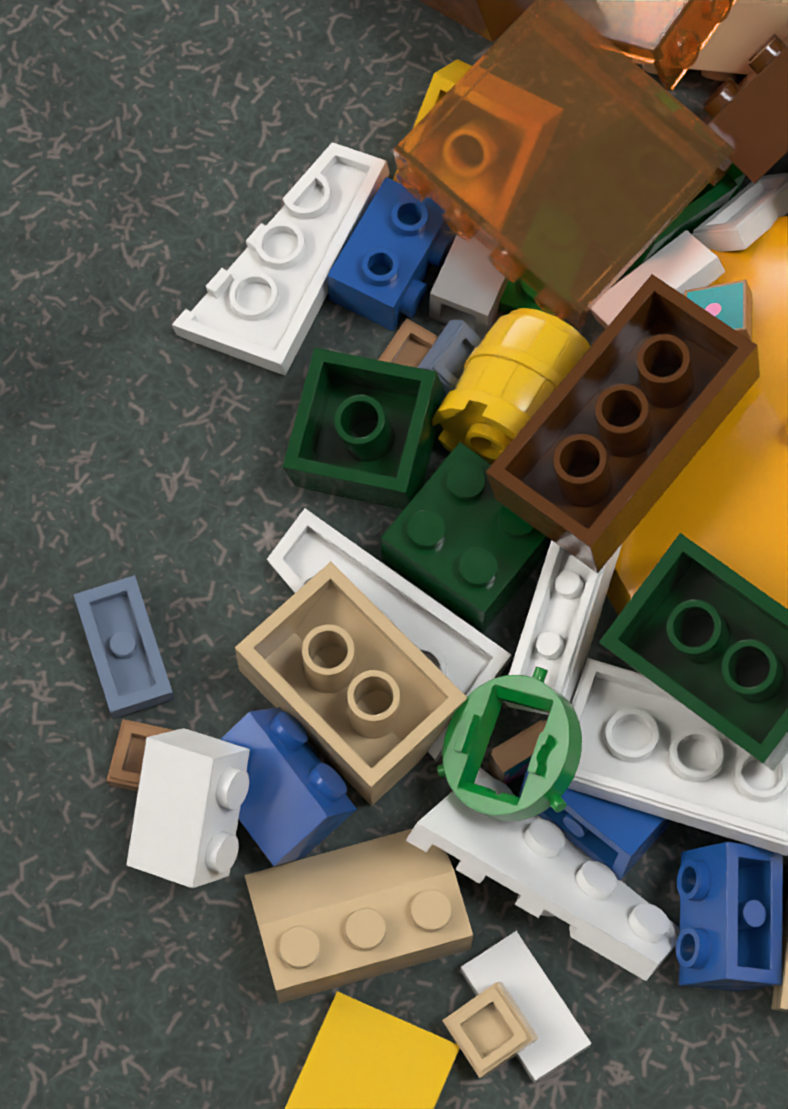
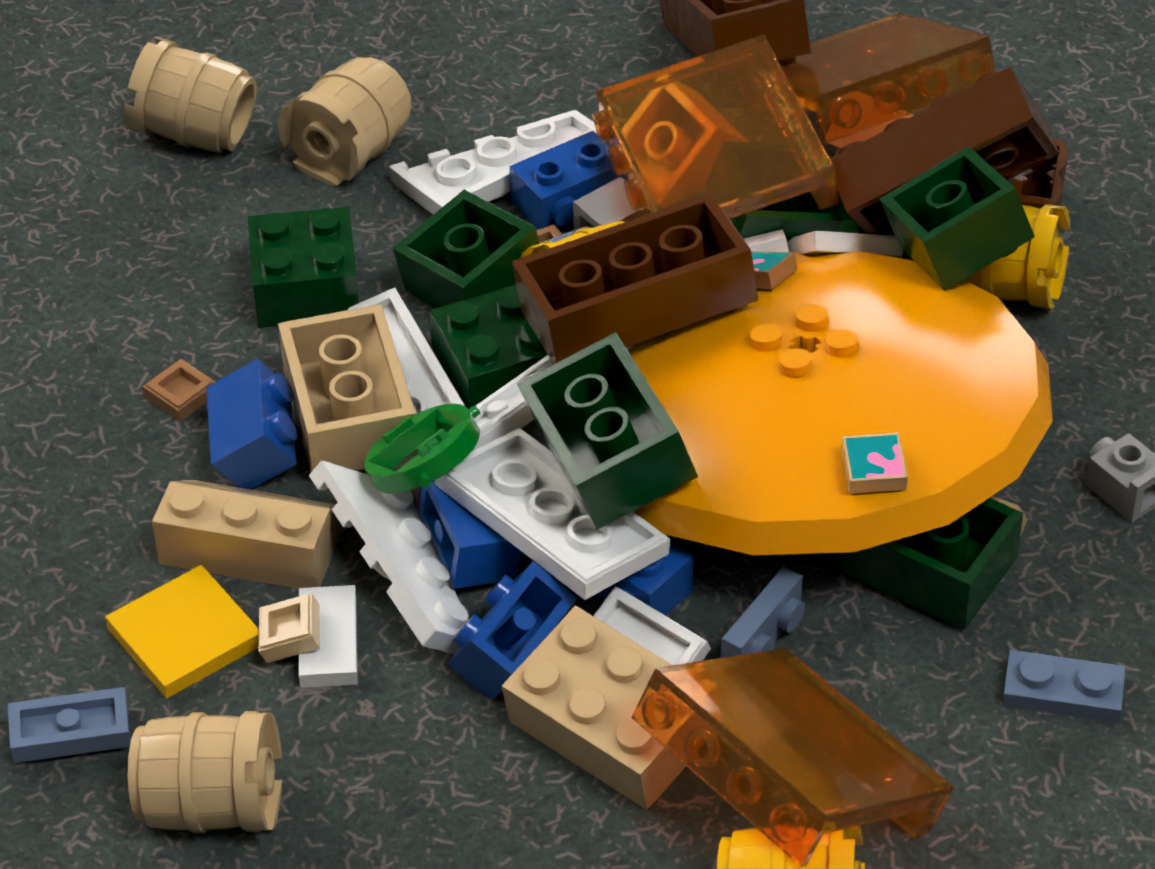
camera: 30 degrees right, 25 degrees down
(95, 288) = (345, 119): none -> tan piece
(123, 647) = (213, 320): sand blue plate -> none
(182, 526) = (302, 264): none -> dark green brick
(188, 807) = (178, 402): white brick -> none

